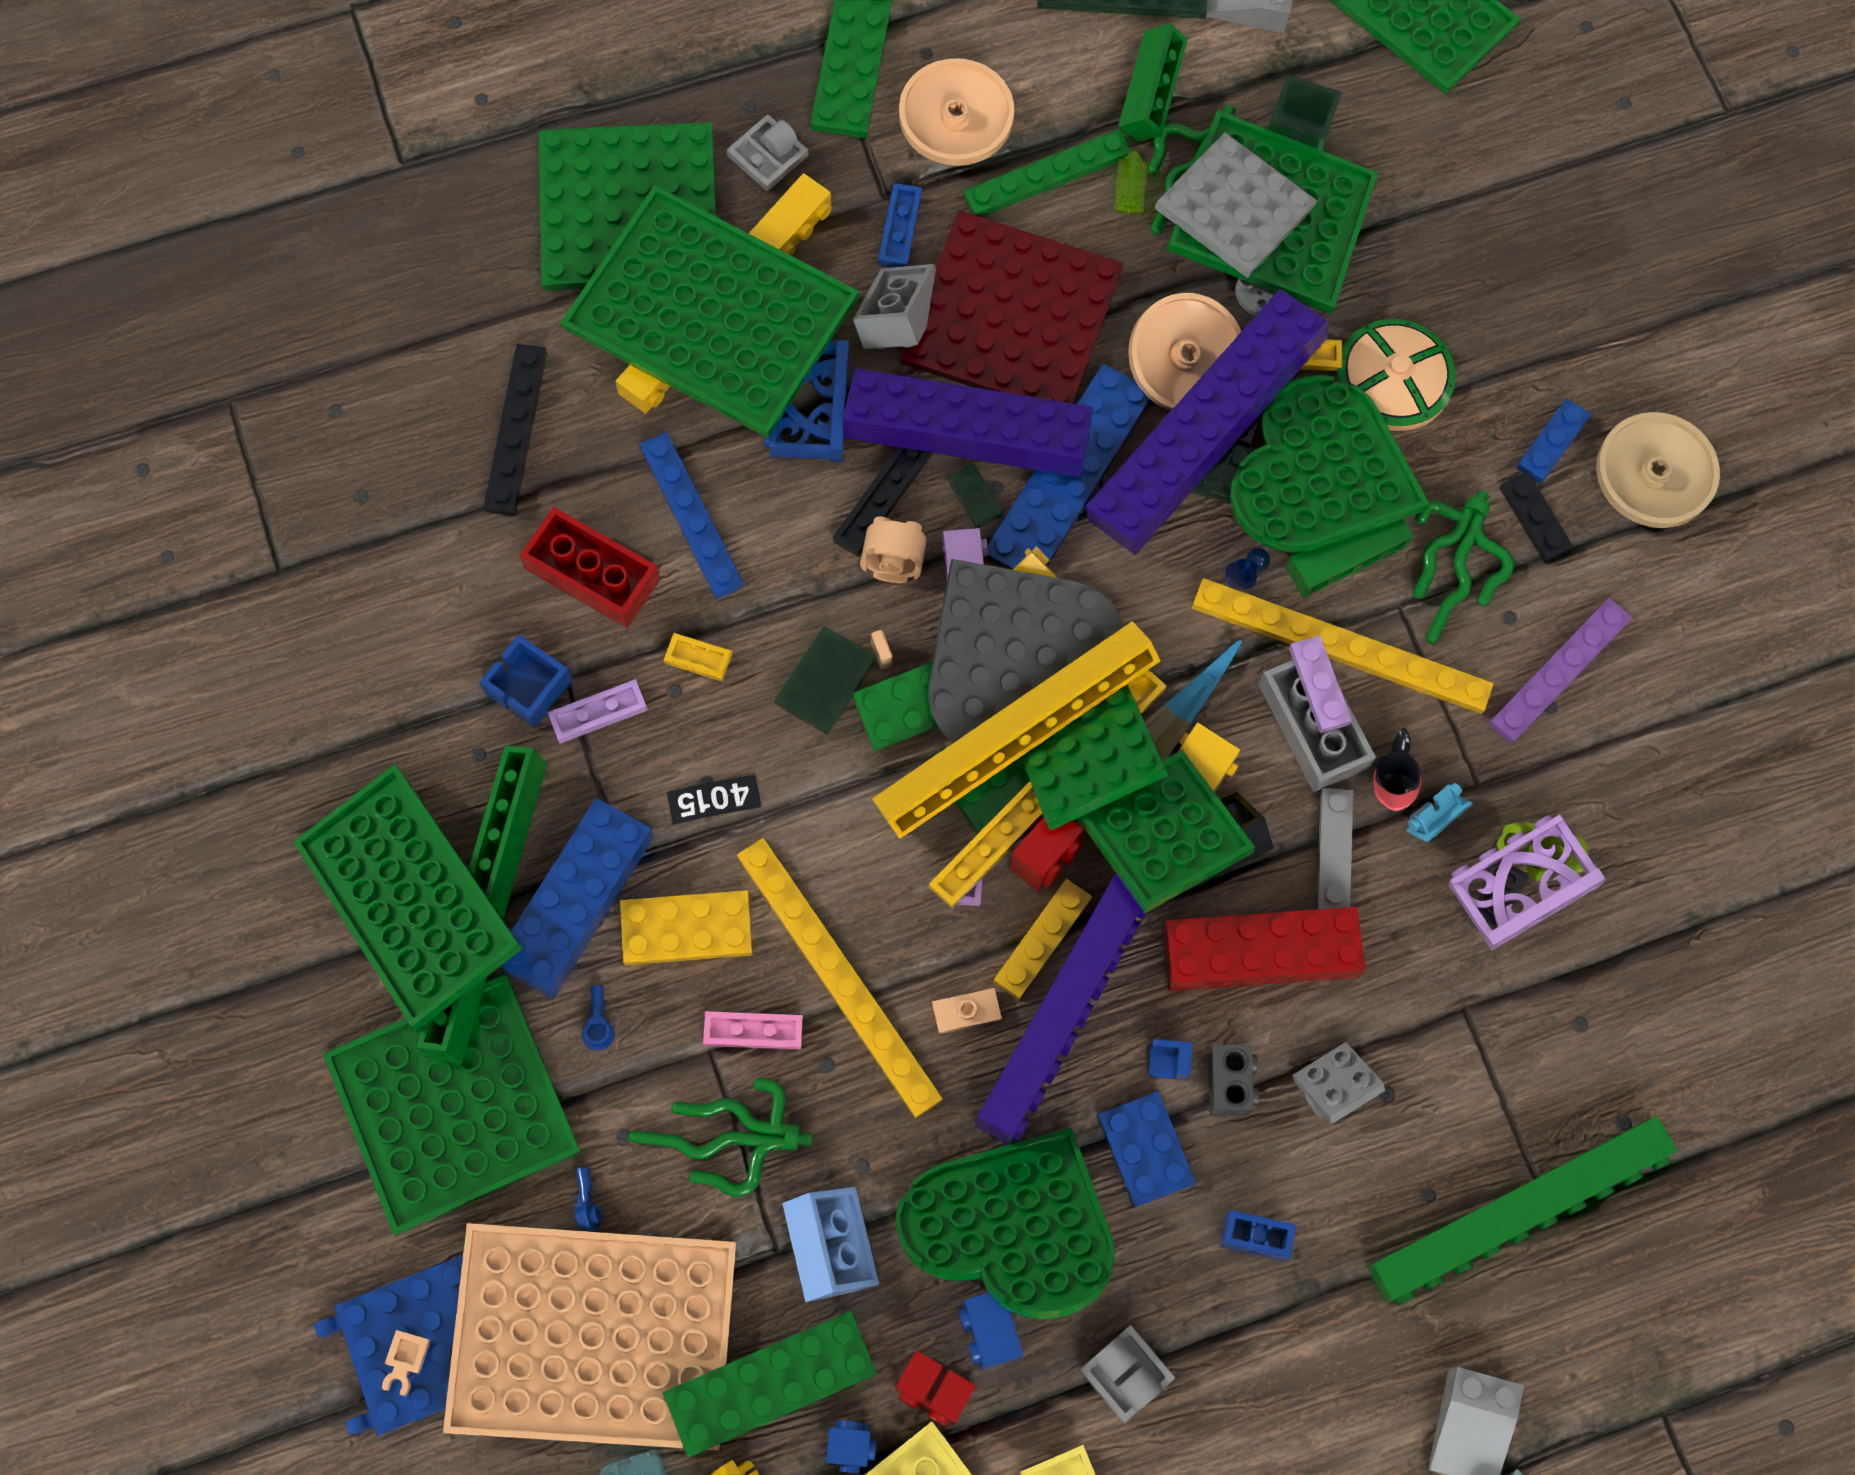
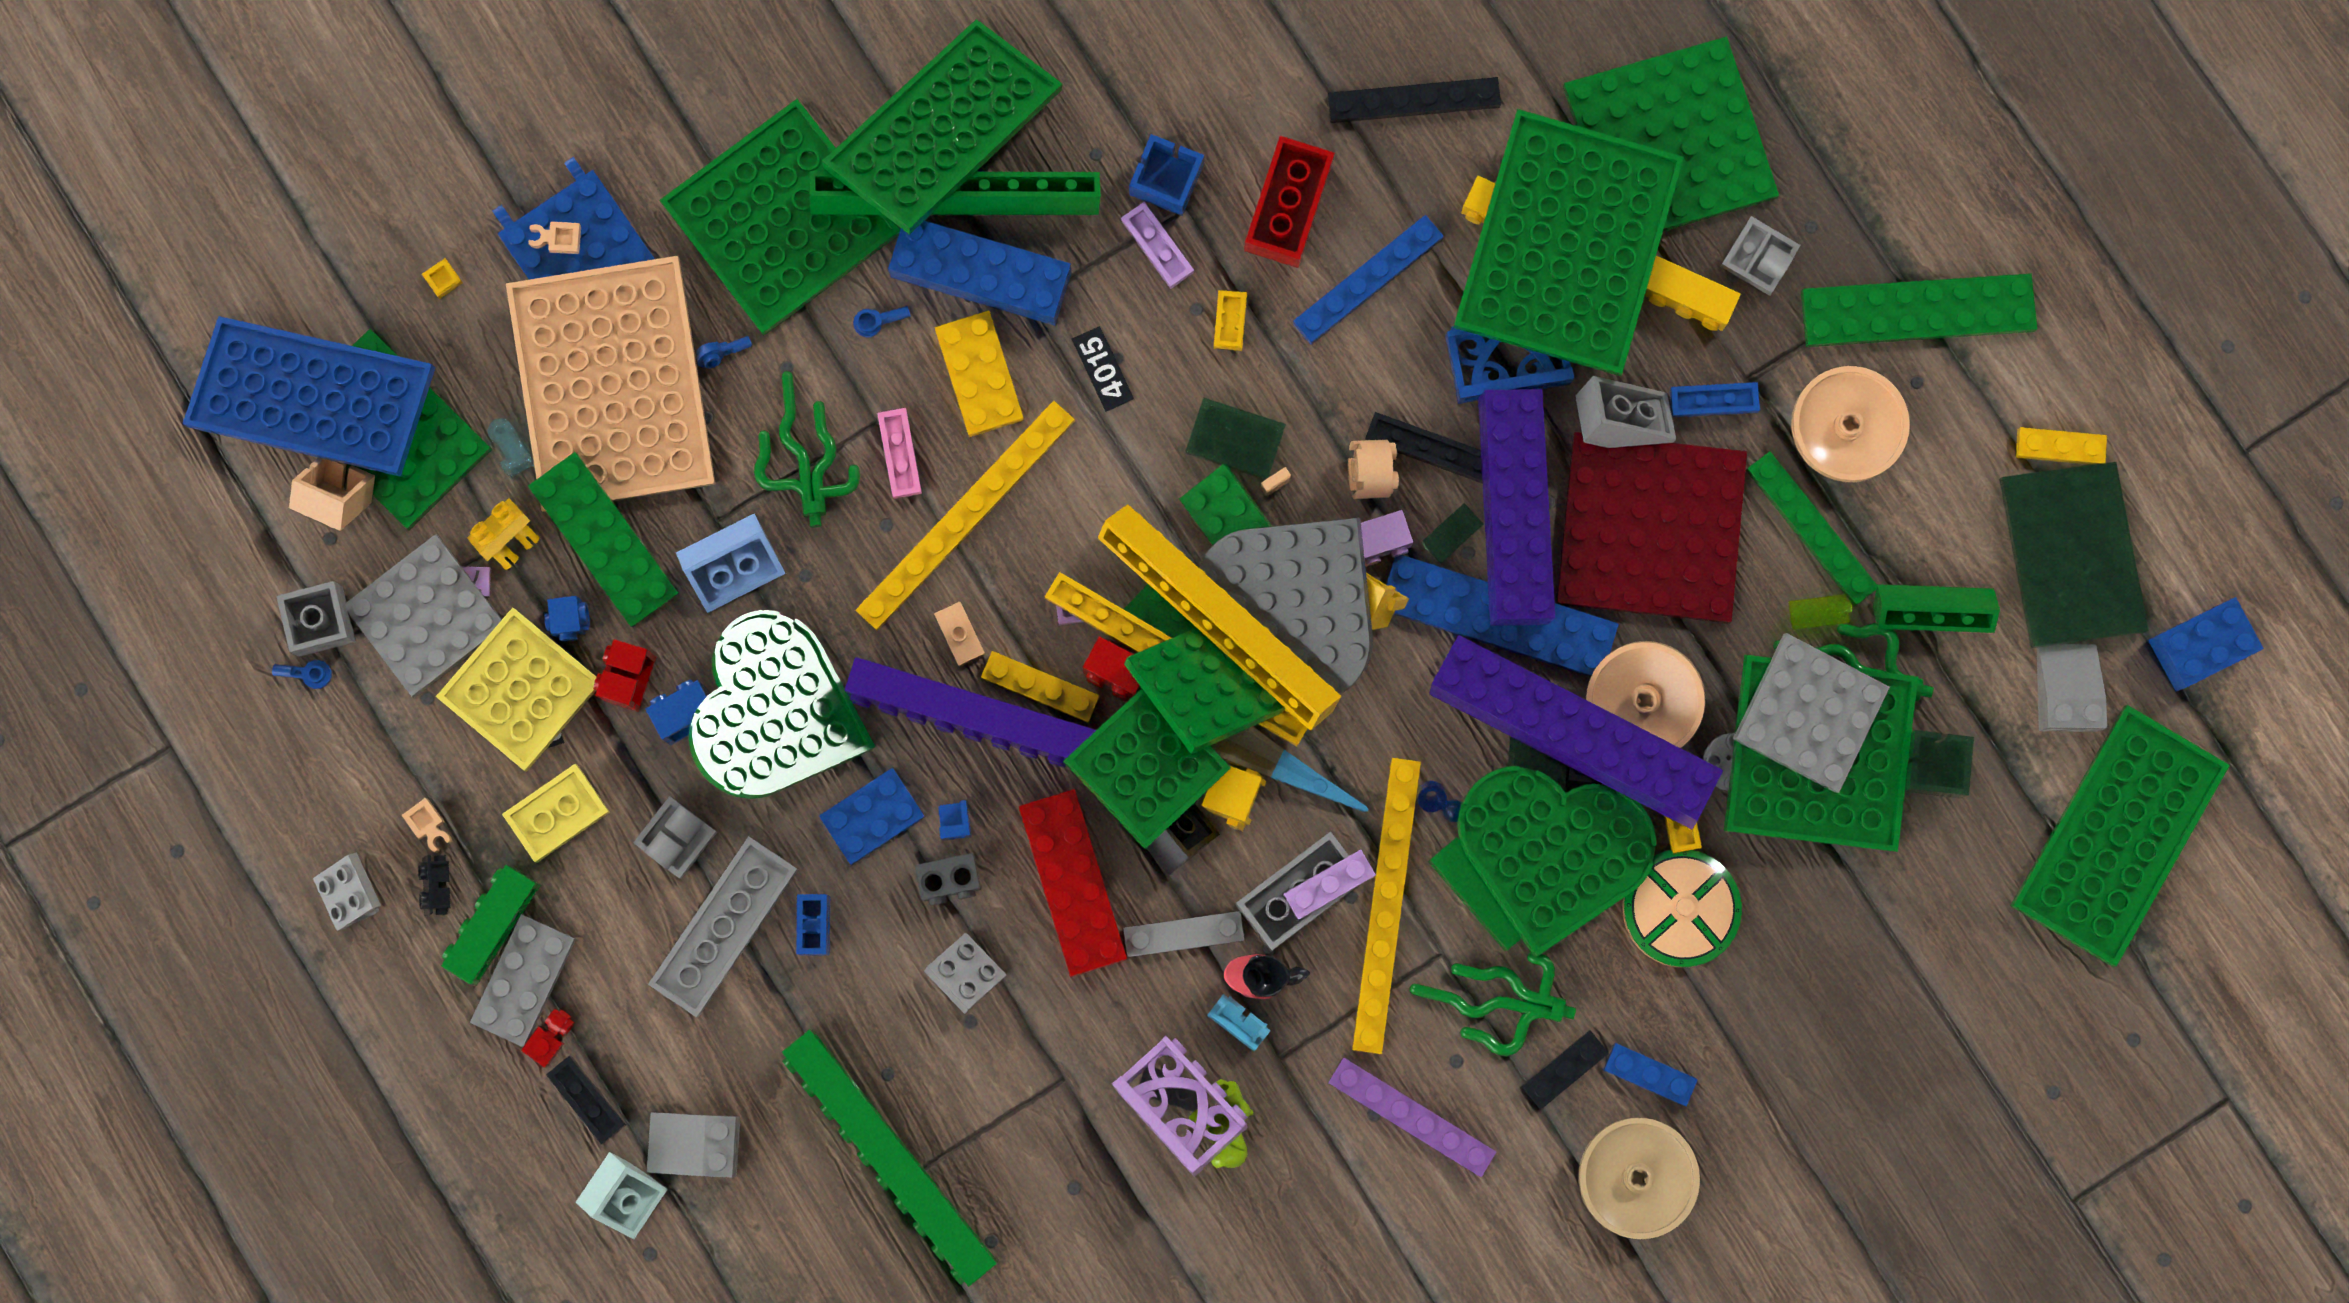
camera: 80 degrees right, 10 degrees up
(1238, 1341) = (723, 927): none -> light grey plate

